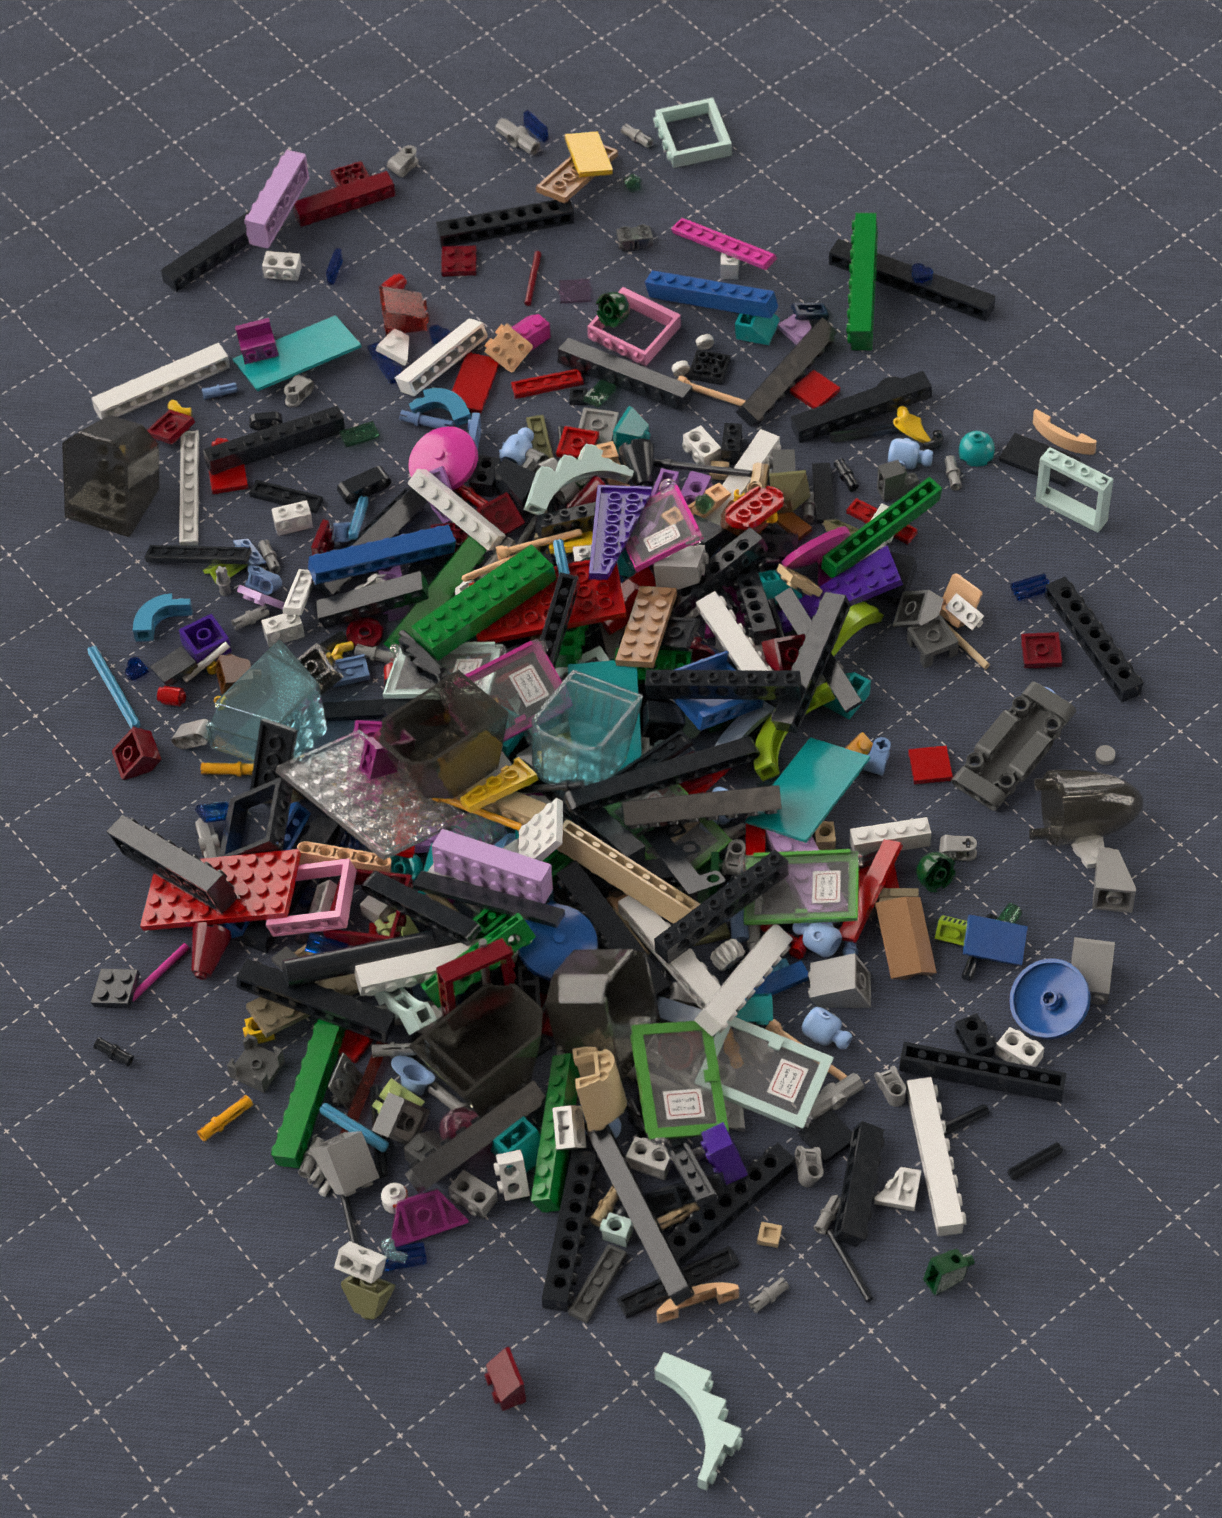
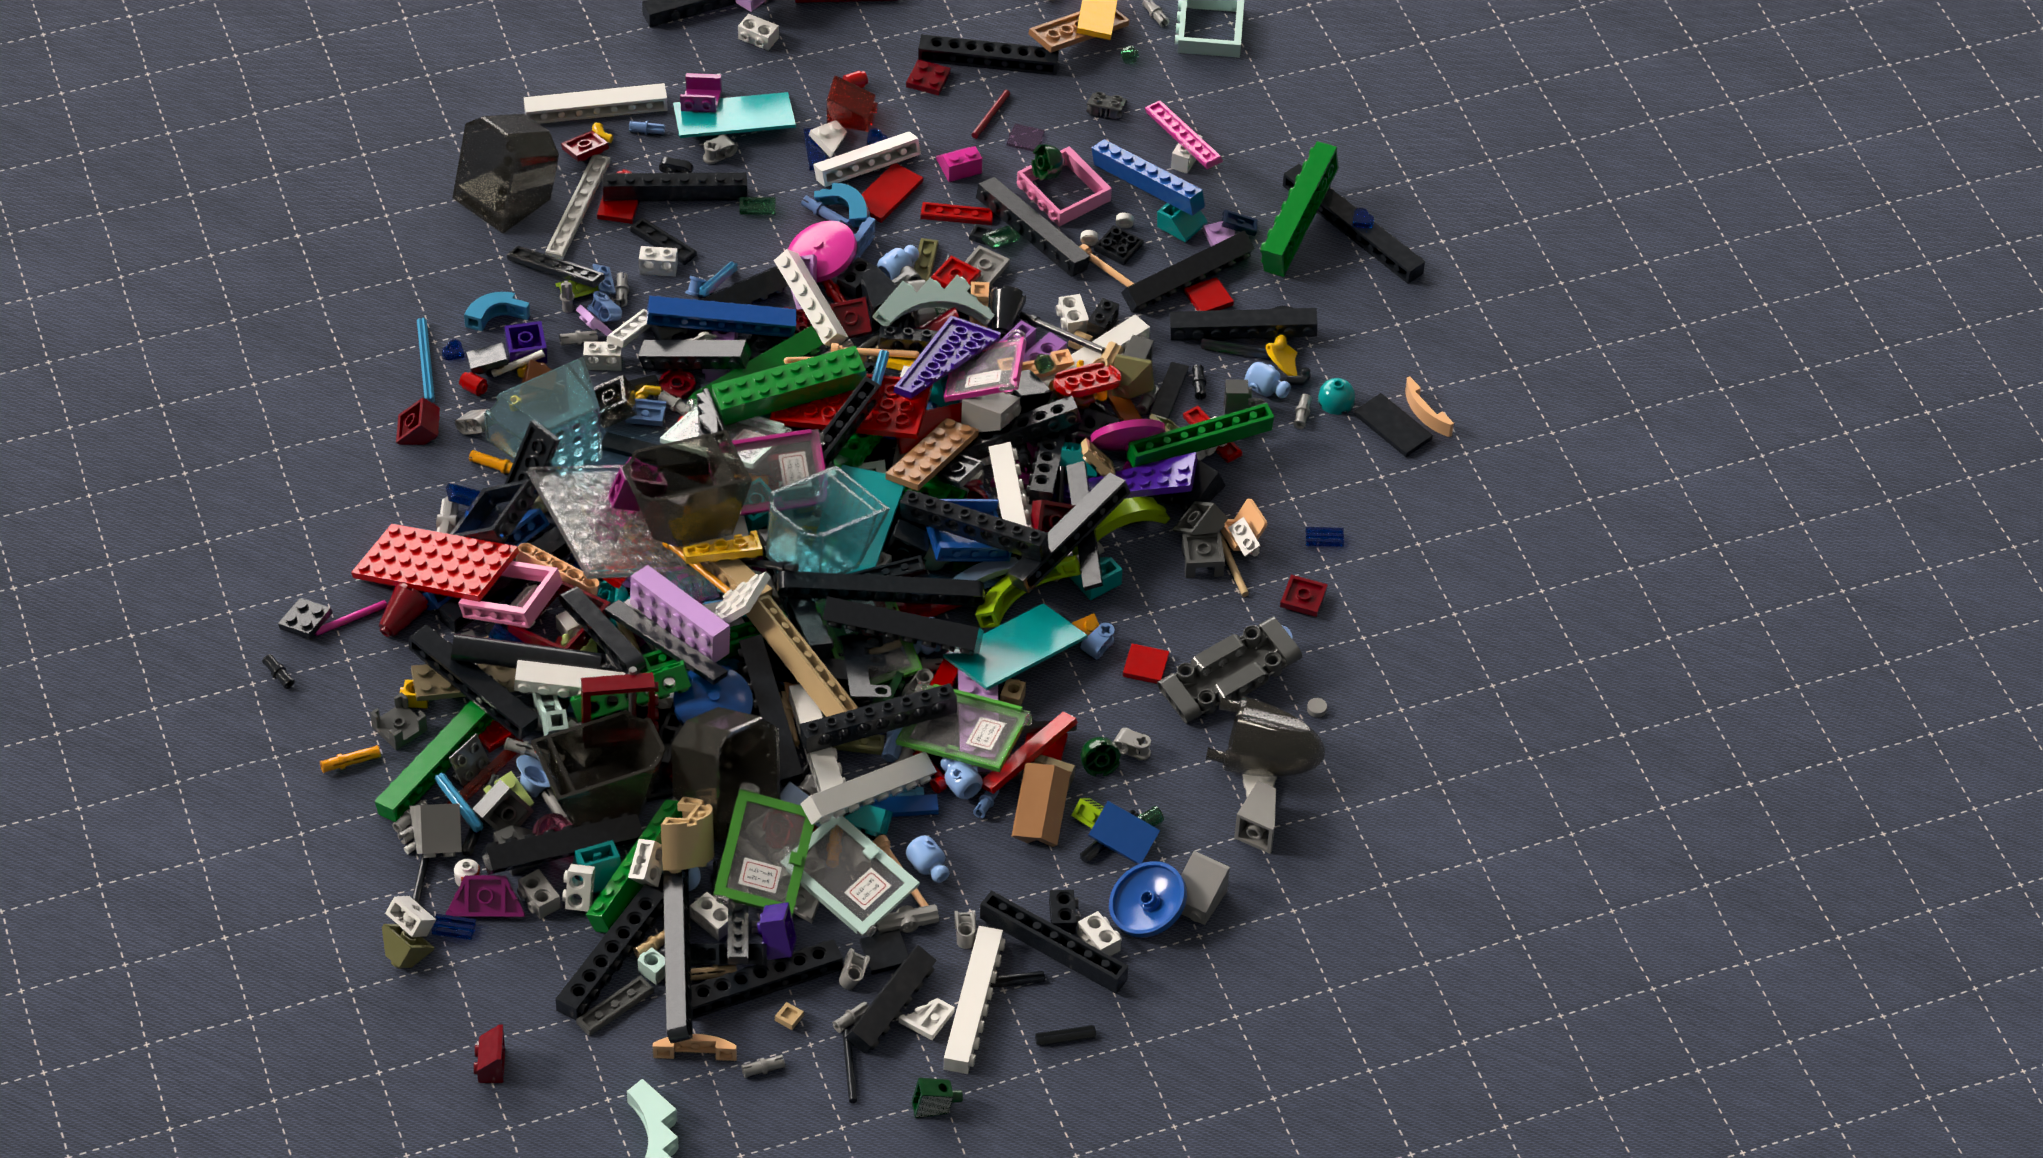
camera: 15 degrees right, 5 degrees down
(173, 864) = (401, 524): brick -> none
(323, 539) = (675, 286): dark red tile -> none
(334, 266) = (807, 47): clear blue tile -> none
(364, 484) = (739, 252): black beam -> none
(390, 1252) = (441, 917): clear light blue arm -> none
(508, 347) = (932, 169): light nougat bracket -> none
(630, 427) = (1011, 273): teal slope -> none
(696, 1273) = (712, 1025): black tile -> none
(727, 954) = (868, 763): white gear -> none
(840, 983) = (962, 824): light grey slope -> none
(911, 833) = (1090, 715): white brick -> none
(1066, 505) = (1417, 490): light aqua window -> none
(1094, 639) = (1358, 601): black brick -> none

